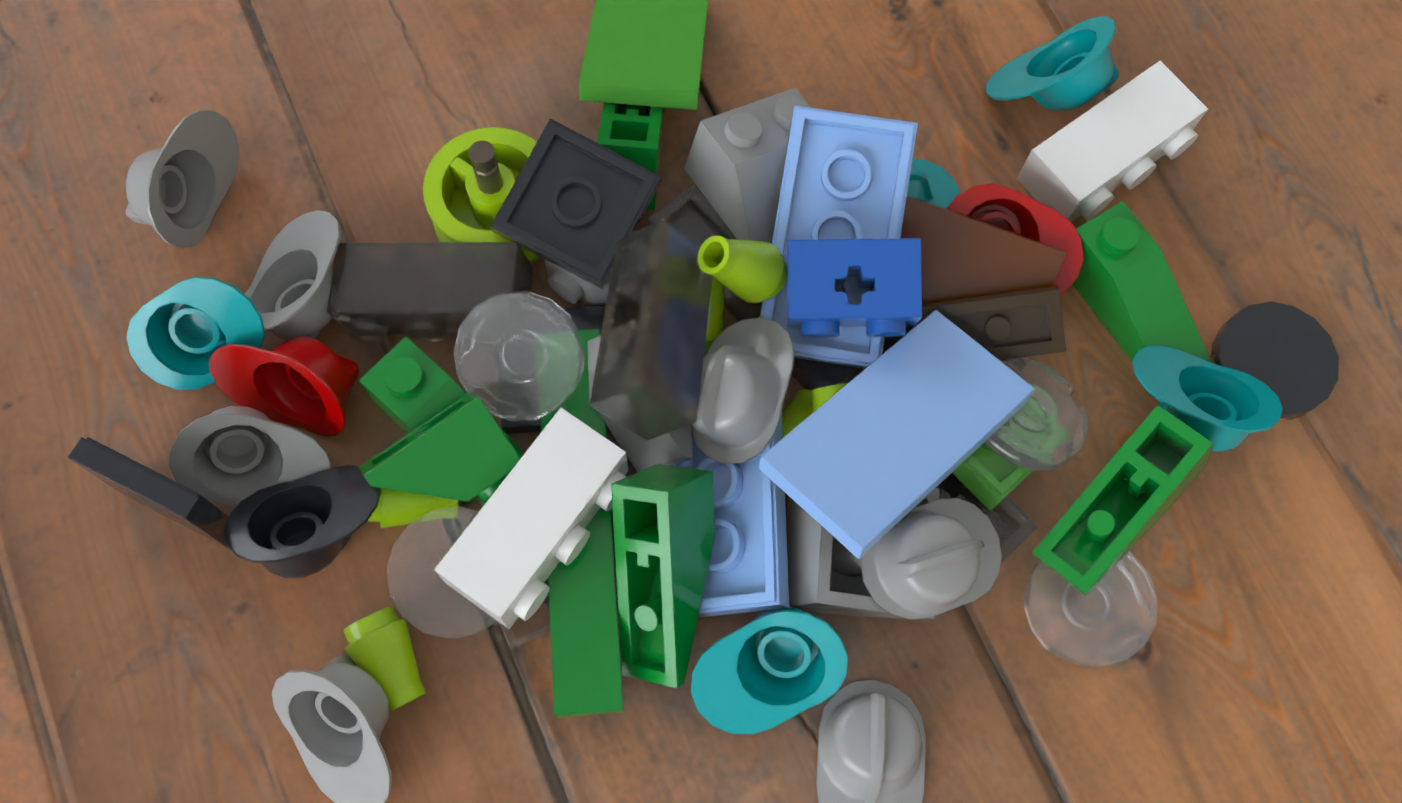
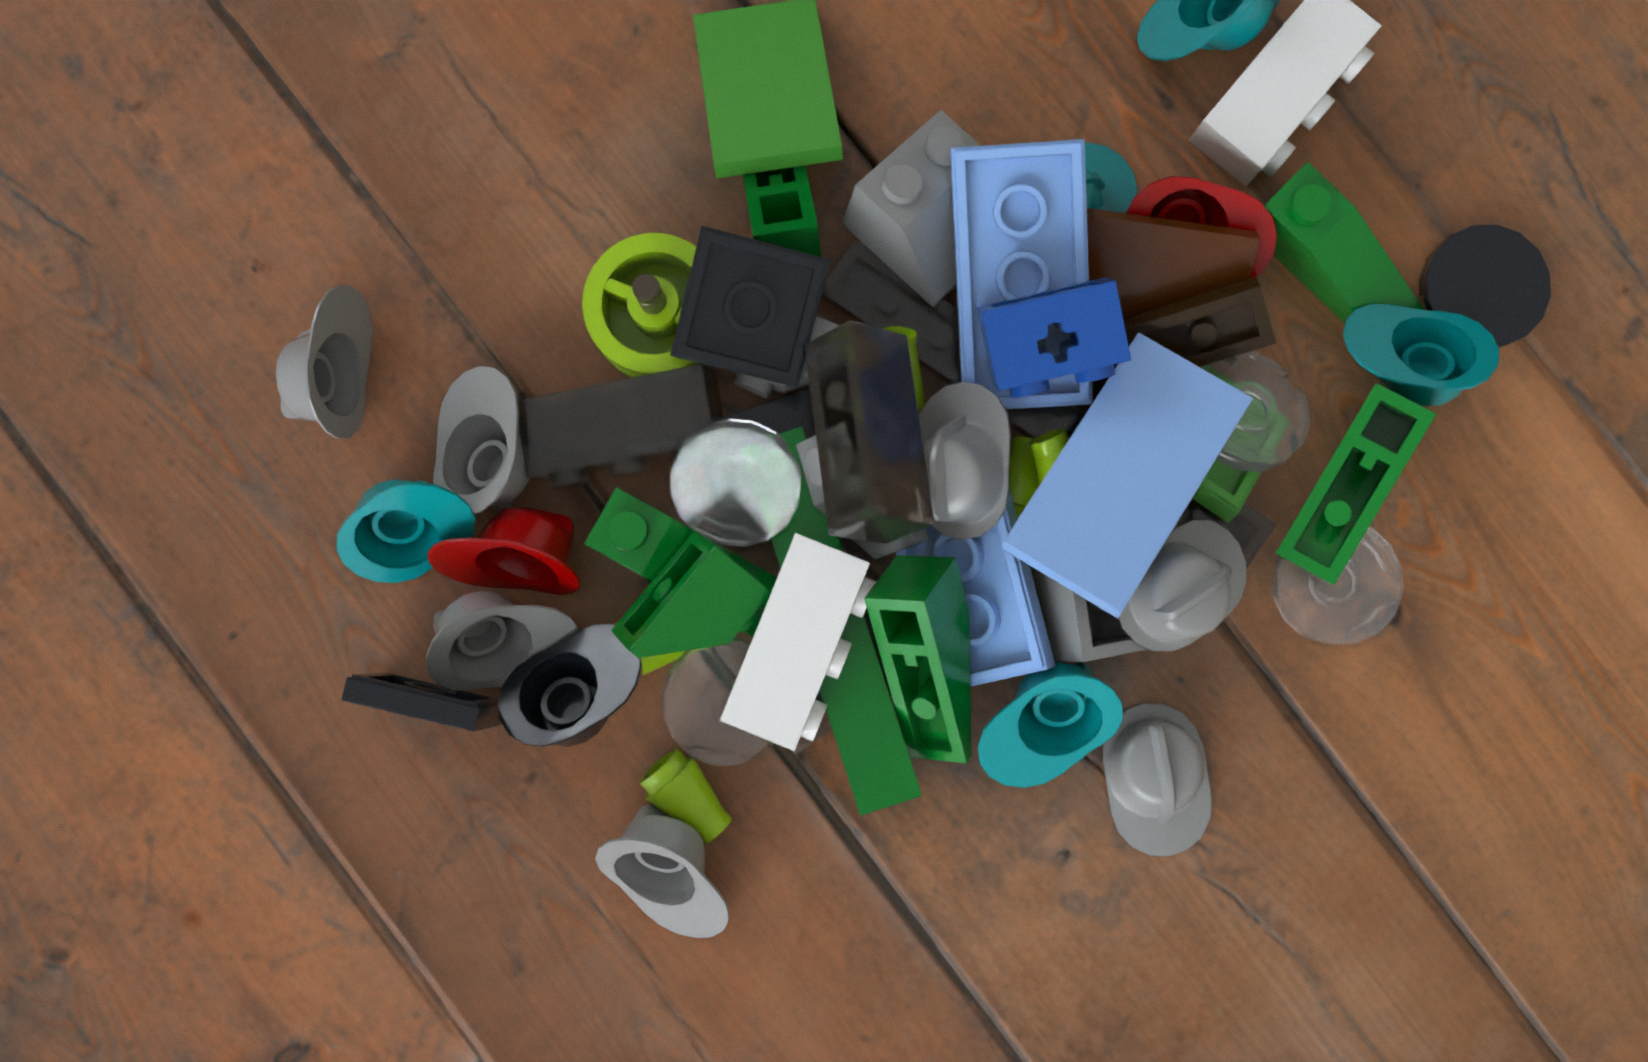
camera: 10 degrees left, 15 degrees up
(746, 267) = (940, 339): lime cone -> none

